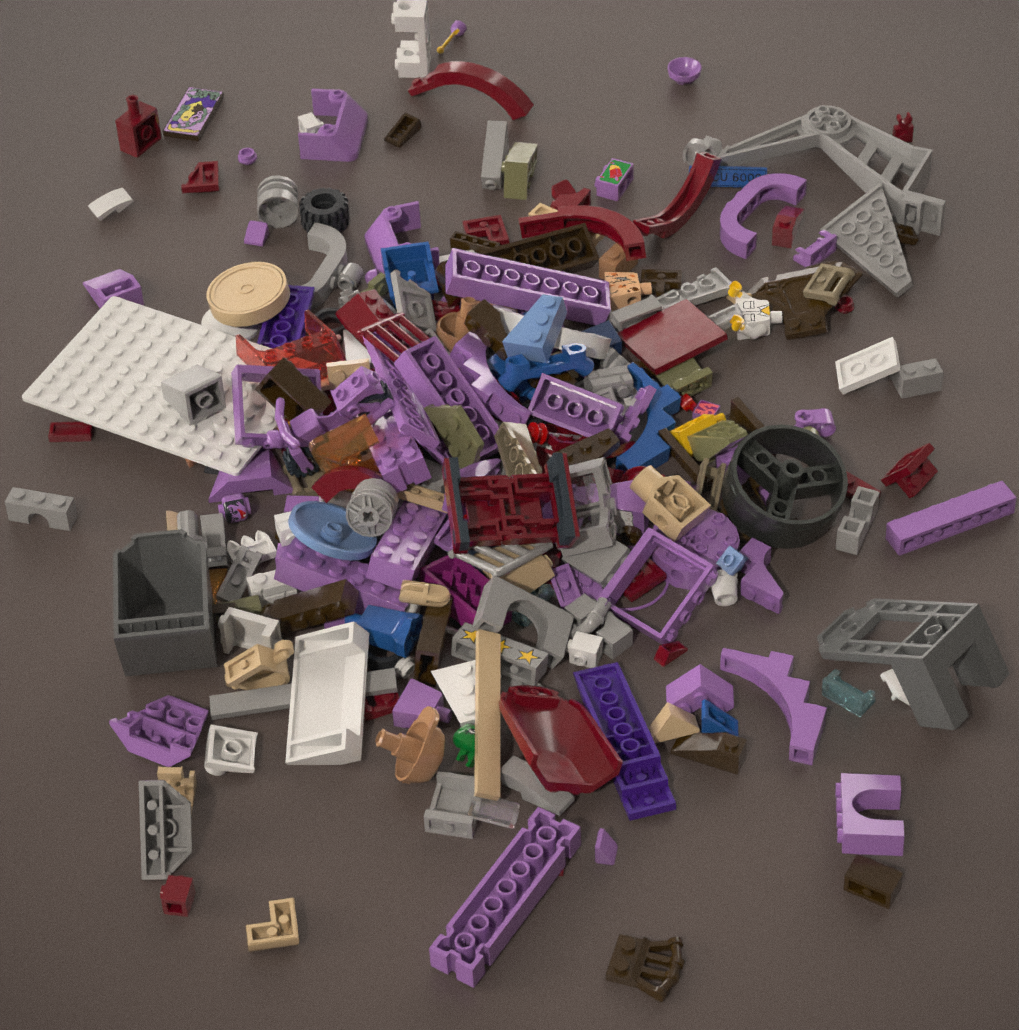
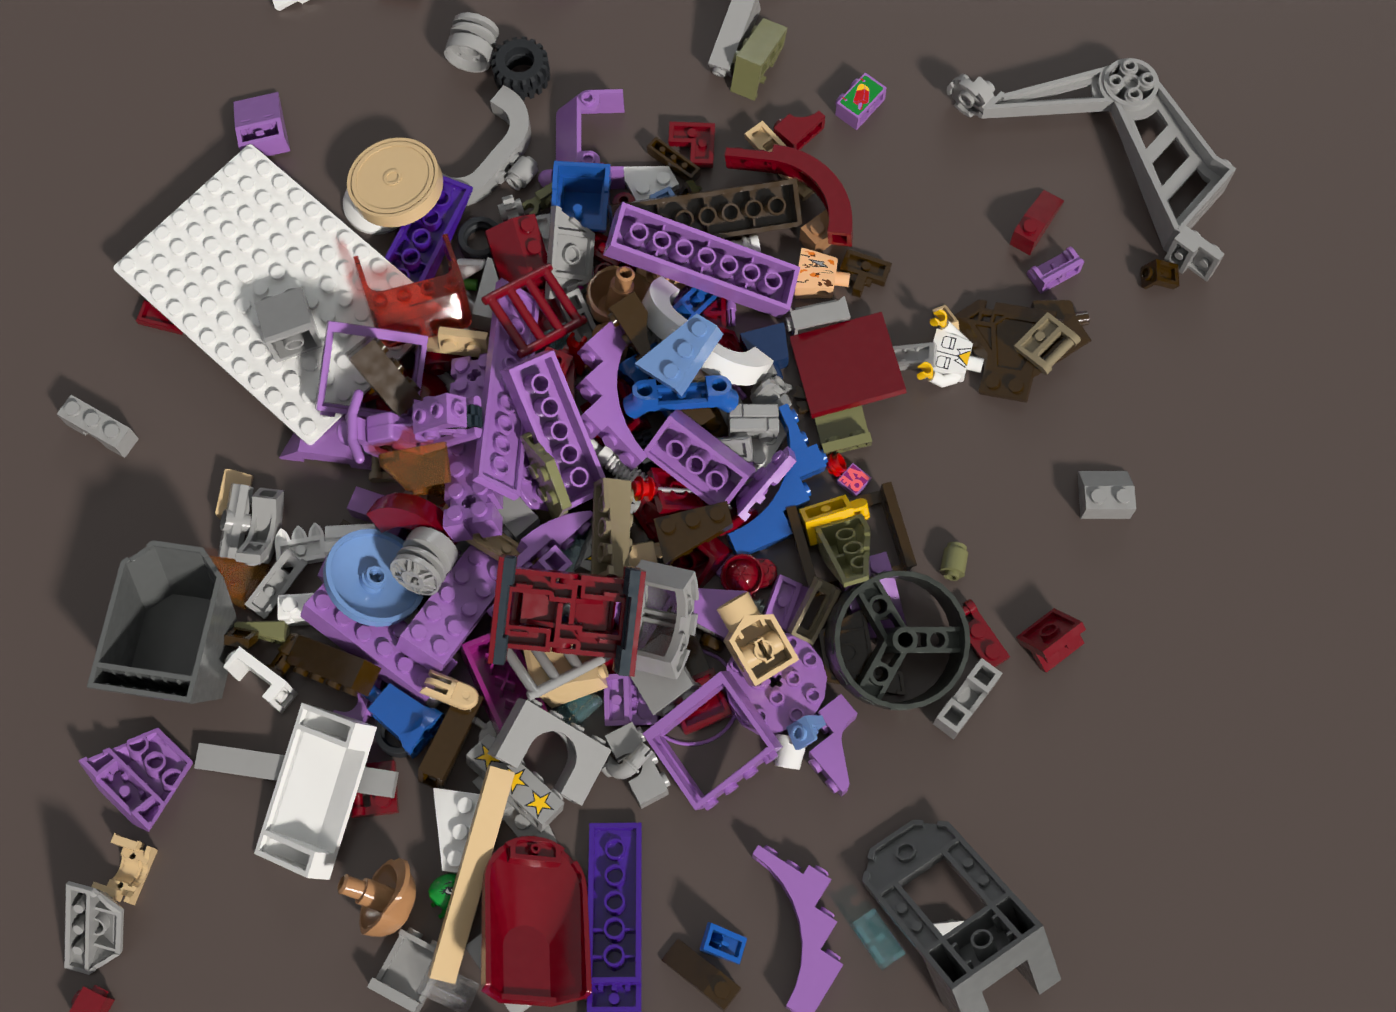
camera: 15 degrees right, 25 degrees up
(229, 750) = (198, 828): white slope -> none
(235, 508) = (300, 482): medium lavender head -> none
(256, 233) = (440, 78): medium lavender slope -> none
(259, 667) = (251, 734): tan piece -> none
(404, 667) = (412, 764): white plate -> none
(414, 699) = (412, 824): medium lavender torso -> none
(563, 187) = (798, 104): dark red slope -> none
(585, 649) = (611, 795): white brick -> none
(668, 652) = (705, 819): dark red piece -> none
(673, 723) = (673, 931): tan slope -> none
(686, 201) = (923, 164): dark red arch -> none
(698, 685) = (712, 902): medium lavender brick -> none
(701, 291) = (907, 297): light grey wing -> none
(736, 176) = (990, 130): blue tile -> none
(761, 189) = (1029, 159): medium lavender arch -> none
(819, 419) = (972, 534): medium lavender piece -> none
(845, 305) = (1065, 368): dark red plate -> none
(867, 365) = (1054, 472): white plate -> none
(871, 241) = (1122, 275): light grey wing -> none
(904, 129) = (1217, 113): dark red plate -> none
(950, 517) = (1075, 719): medium lavender brick -> none

